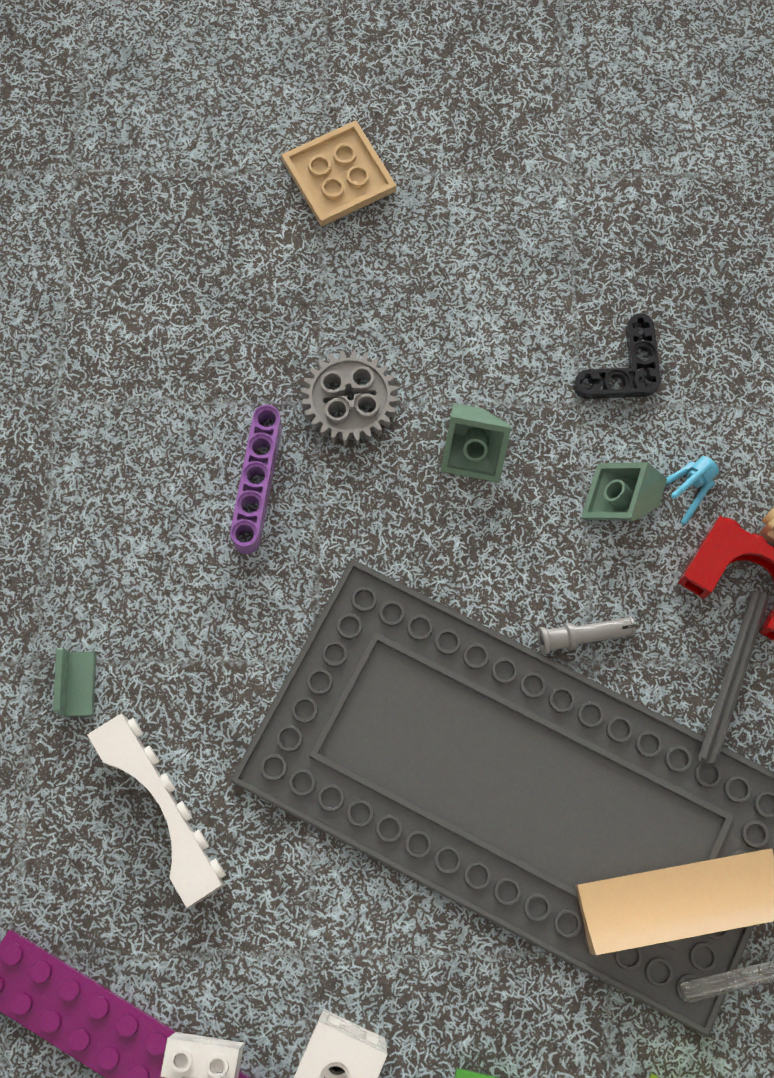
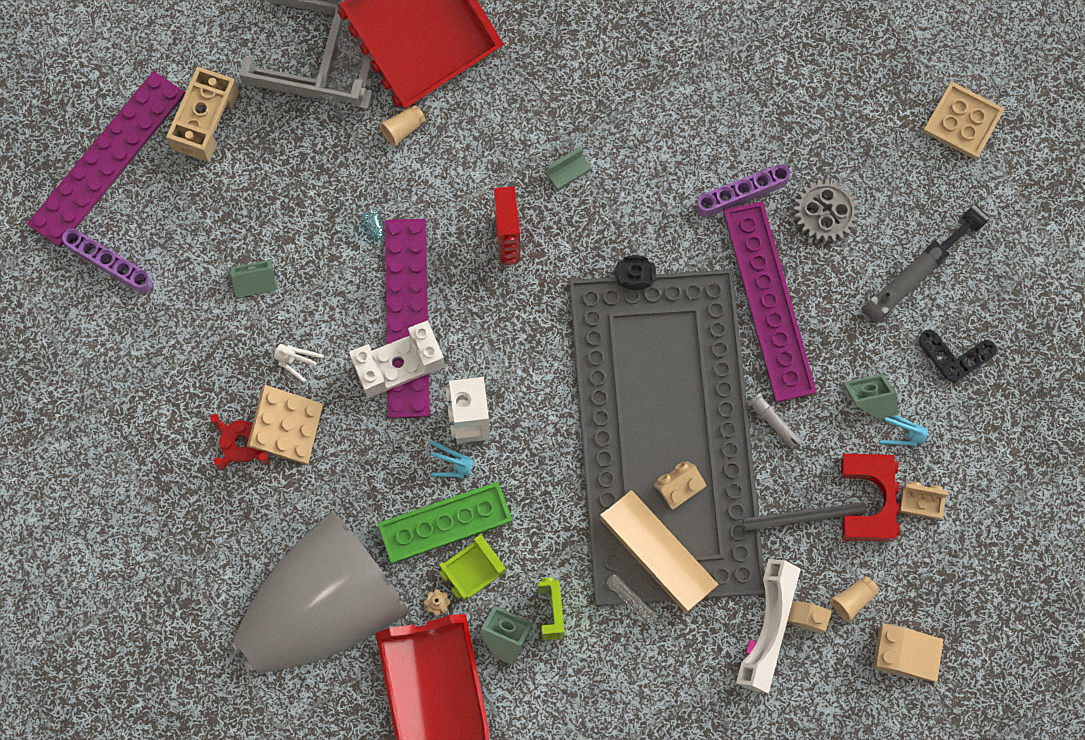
camera: 60 degrees right, 0 degrees up
(100, 825) = (507, 225): none -> red arch
(191, 868) = (512, 287): white arch -> none
(277, 685) = (635, 272): none -> black tile
(423, 540) = (769, 302): none -> magenta plate
(475, 443) = (845, 294): sand green slope -> none
(488, 315) = (920, 268): none -> dark grey piece
(605, 812) = (680, 484): none -> tan bracket

